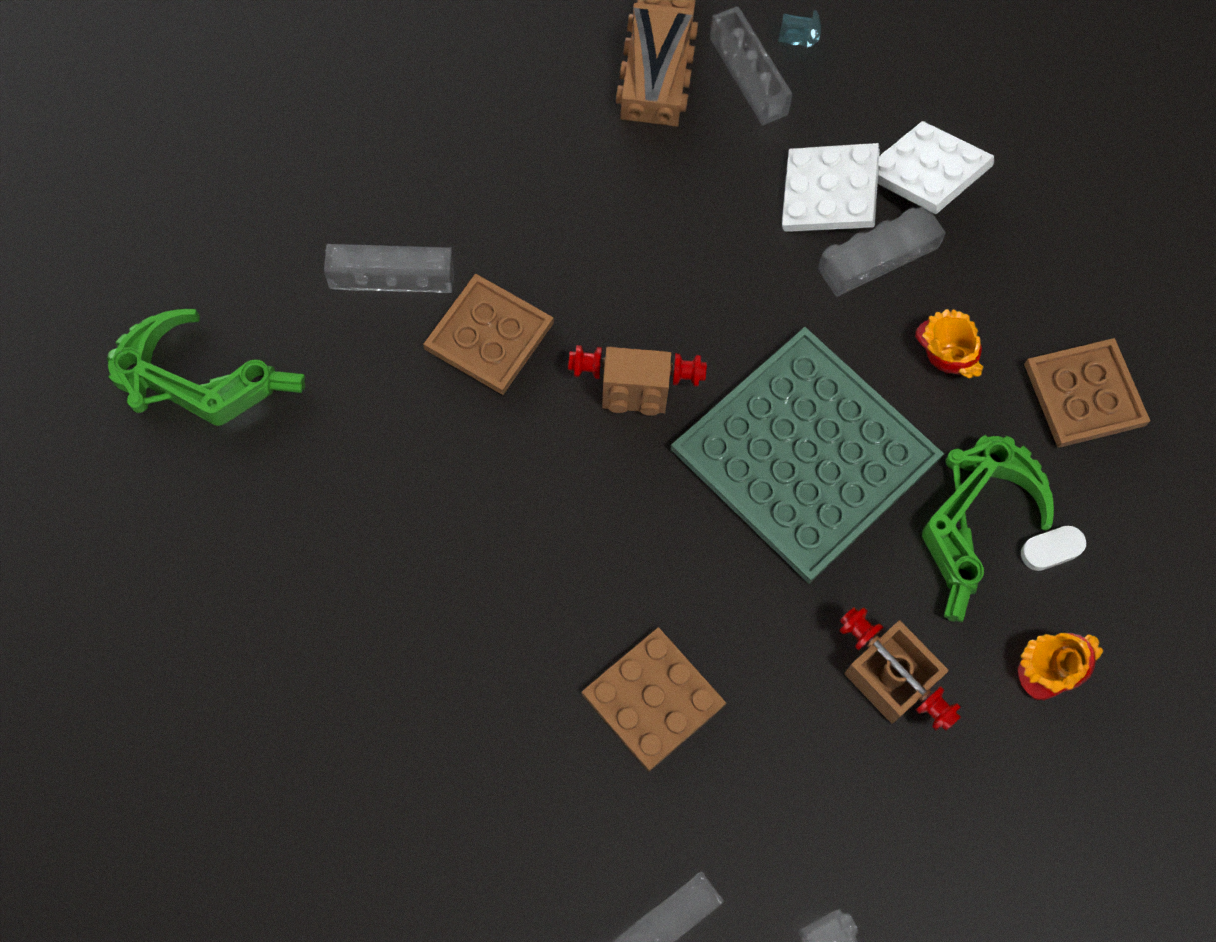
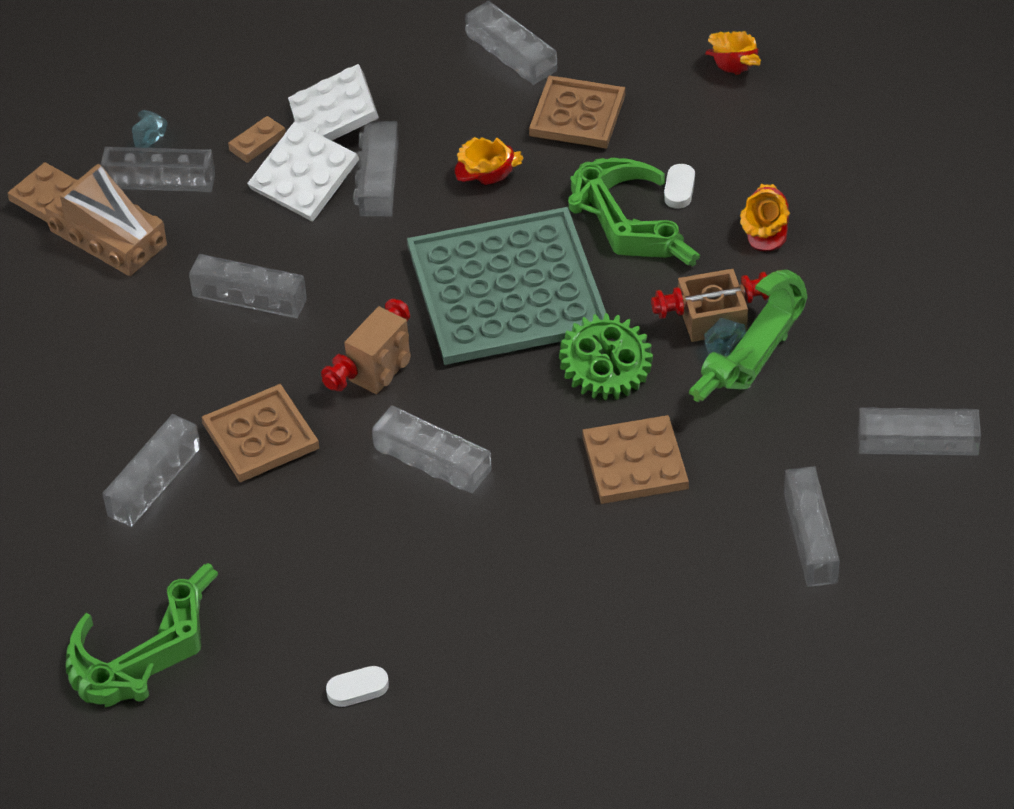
camera: 55 degrees left, 20 degrees down
(237, 586) = (357, 686): none -> white tile
(550, 497) = (431, 449): none -> clear brick
(657, 222) = (248, 285): none -> clear brick
(737, 584) = (583, 365): none -> bright green gear
(853, 125) = (257, 139): none -> medium nougat plate
(855, 705) = (723, 336): none -> clear light blue plate
(900, 749) = (752, 352): none -> bright green piece
(1136, 277) = (511, 42): none -> clear brick

